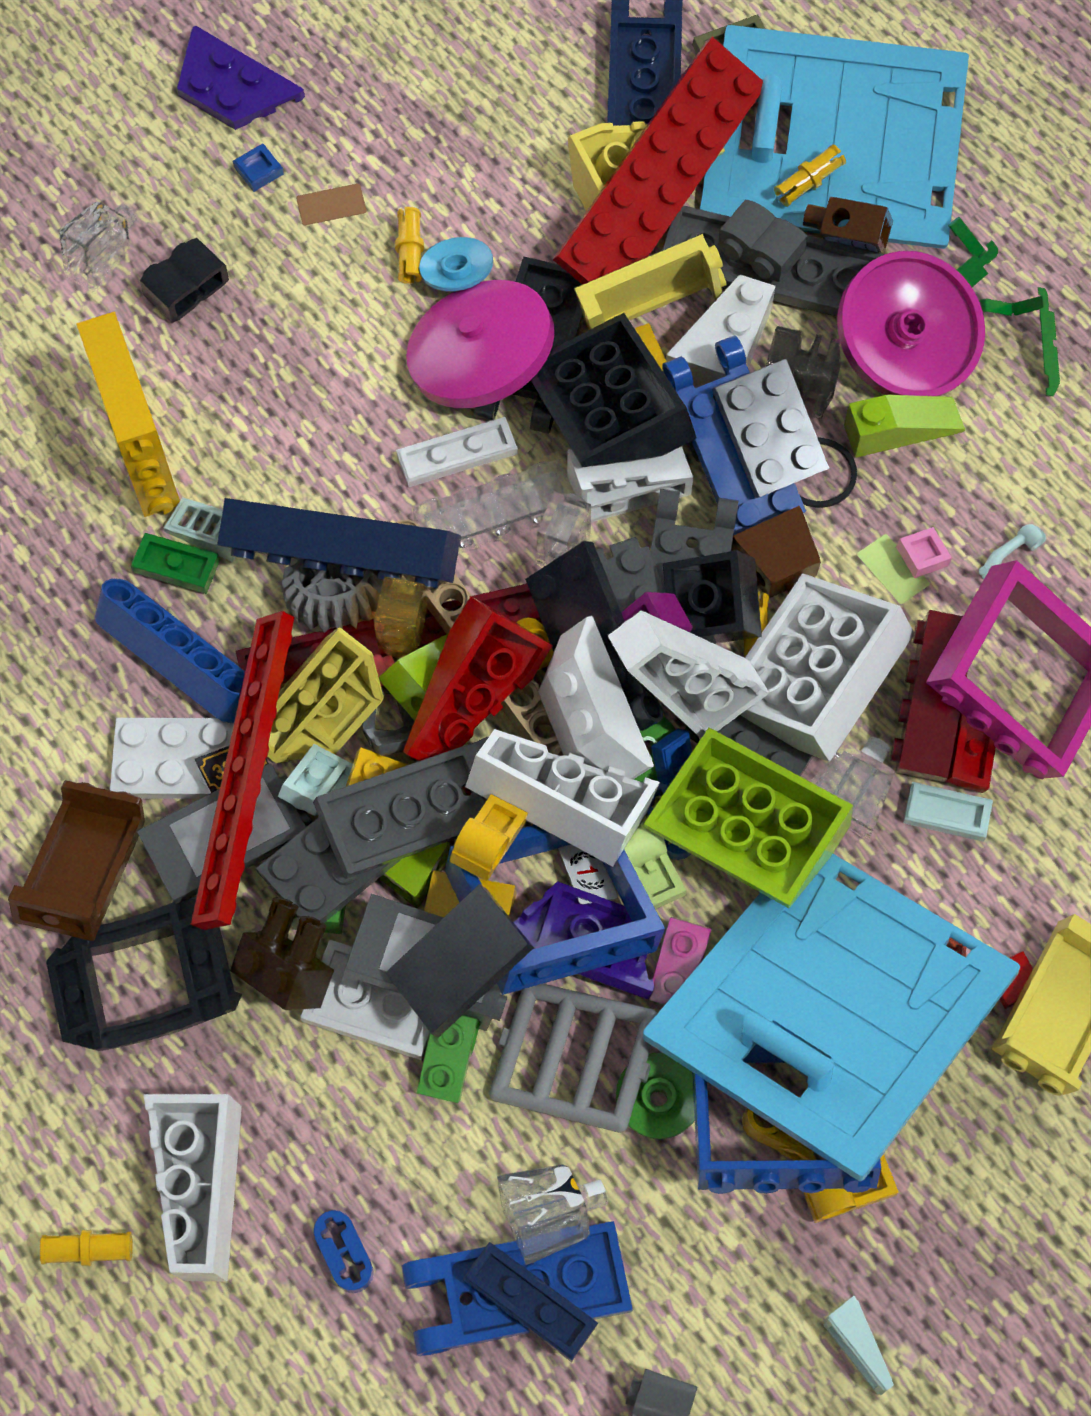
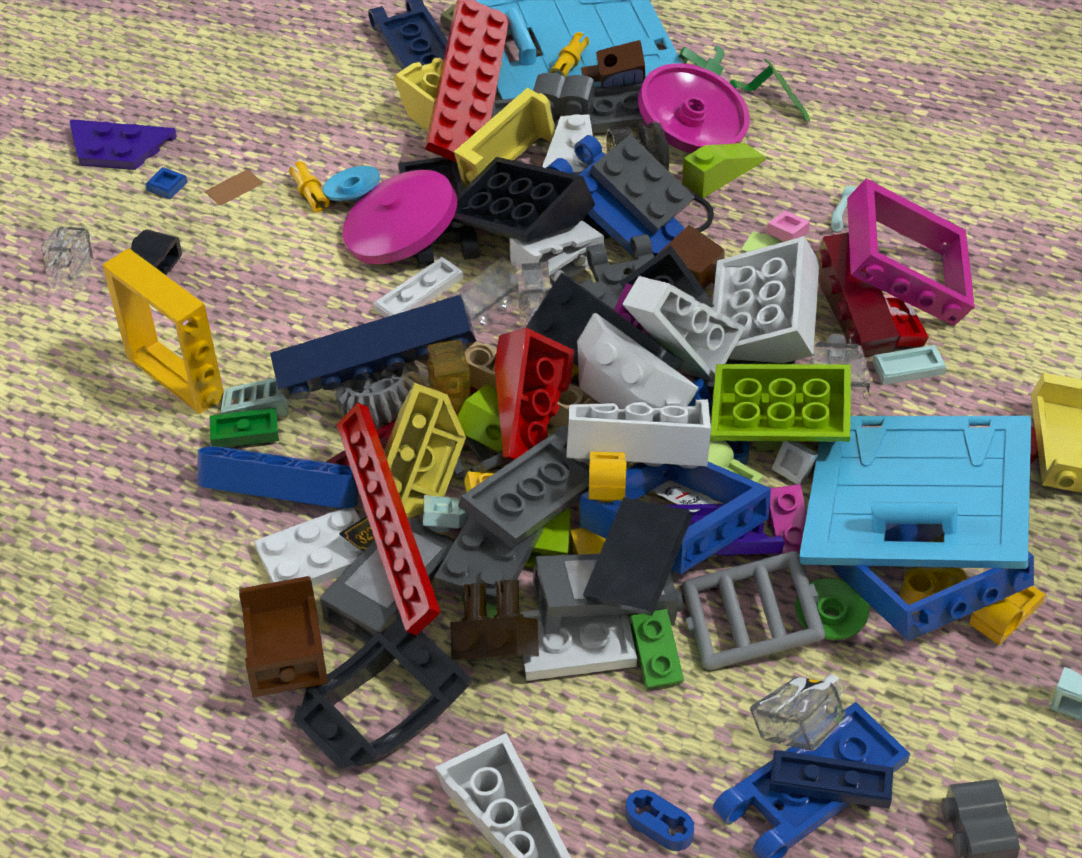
camera: 25 degrees left, 20 degrees down
(730, 893) = (794, 461): none -> white plate

